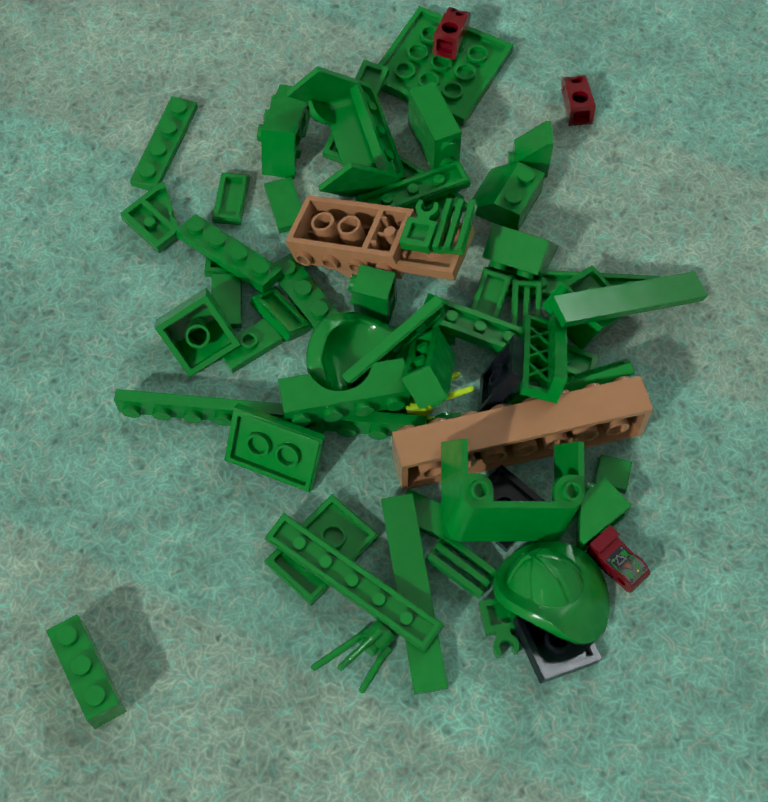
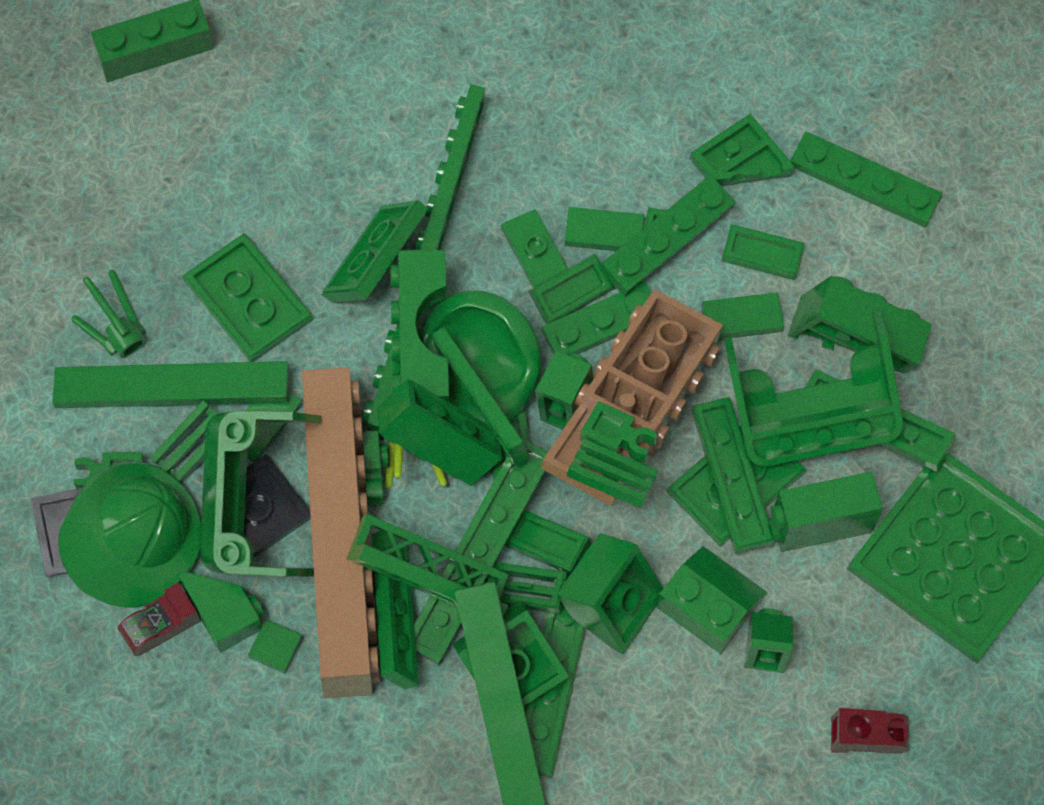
camera: 95 degrees right, 5 degrees up
(197, 332) = (553, 183): green slope -> none
(354, 582) = (192, 318): green tile -> none
(450, 33) = (1002, 567): dark red leg -> none
(501, 374) = (414, 519): black tile -> none

